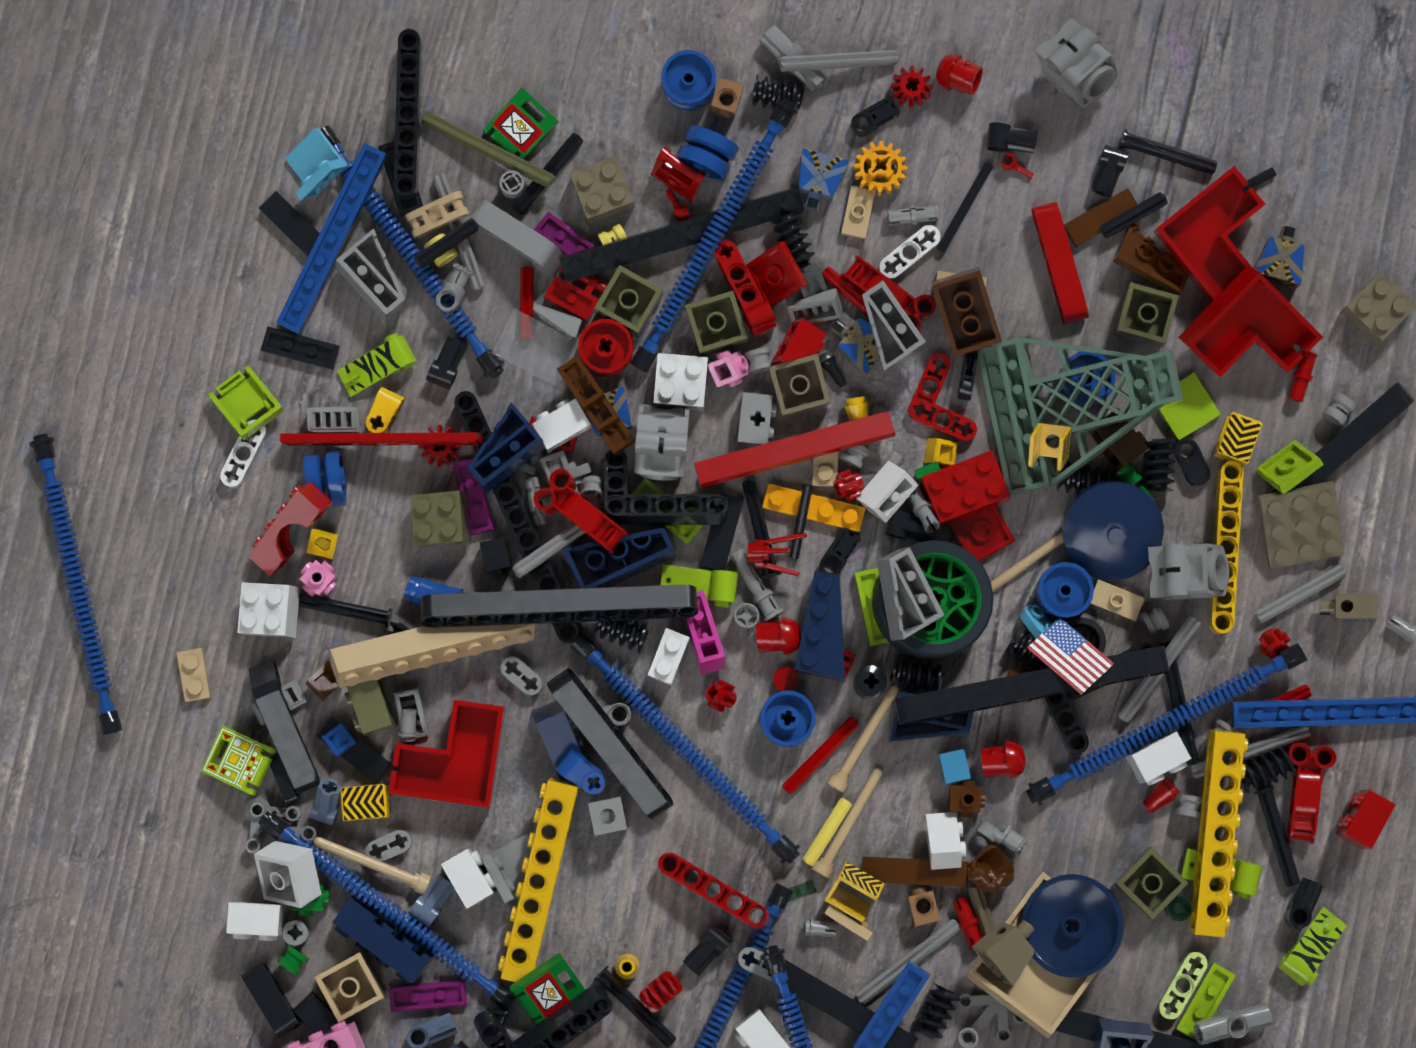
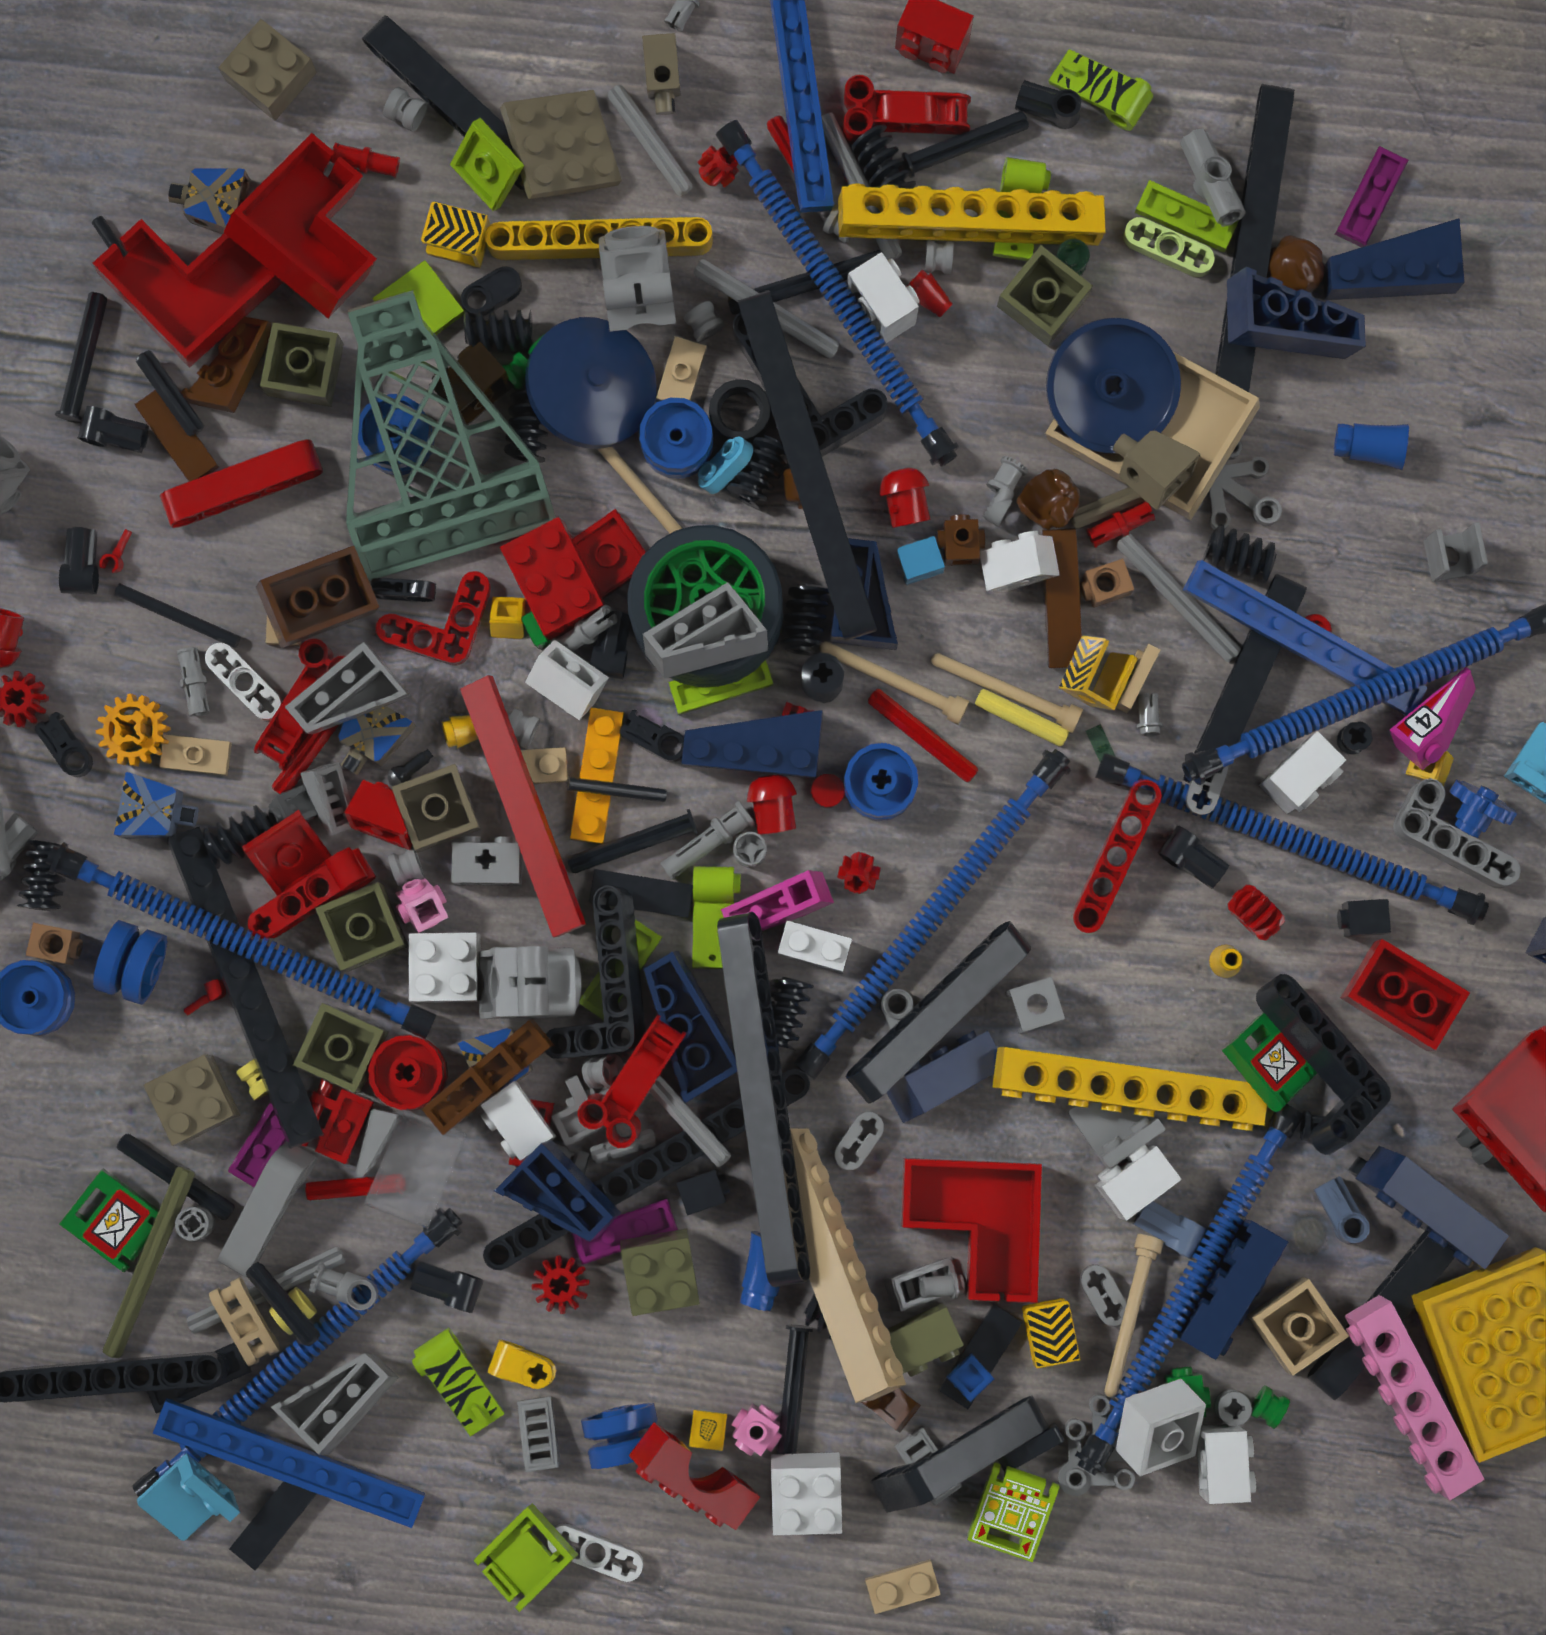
camera: 90 degrees left, 0 degrees up
(271, 1000) = (1325, 1431): black beam -> none
(300, 348) = (444, 1490): black tile -> none
(325, 805) = (1058, 1385): sand blue piece -> none
(380, 439) = (559, 1364): red tile -> none
(428, 996) = (1295, 1220): magenta tile -> none
(578, 770) = (980, 1048): blue piece -> none
(635, 1007) = (1277, 945): black axle -> none
(677, 175) = (163, 999): red plate -> none
(760, 552) = (663, 839): red plant -> none
(848, 485) = (563, 731): red gear -> none
(1039, 446) = (493, 477): yellow piece -> none
(1070, 655) = (763, 417): sticker -> none

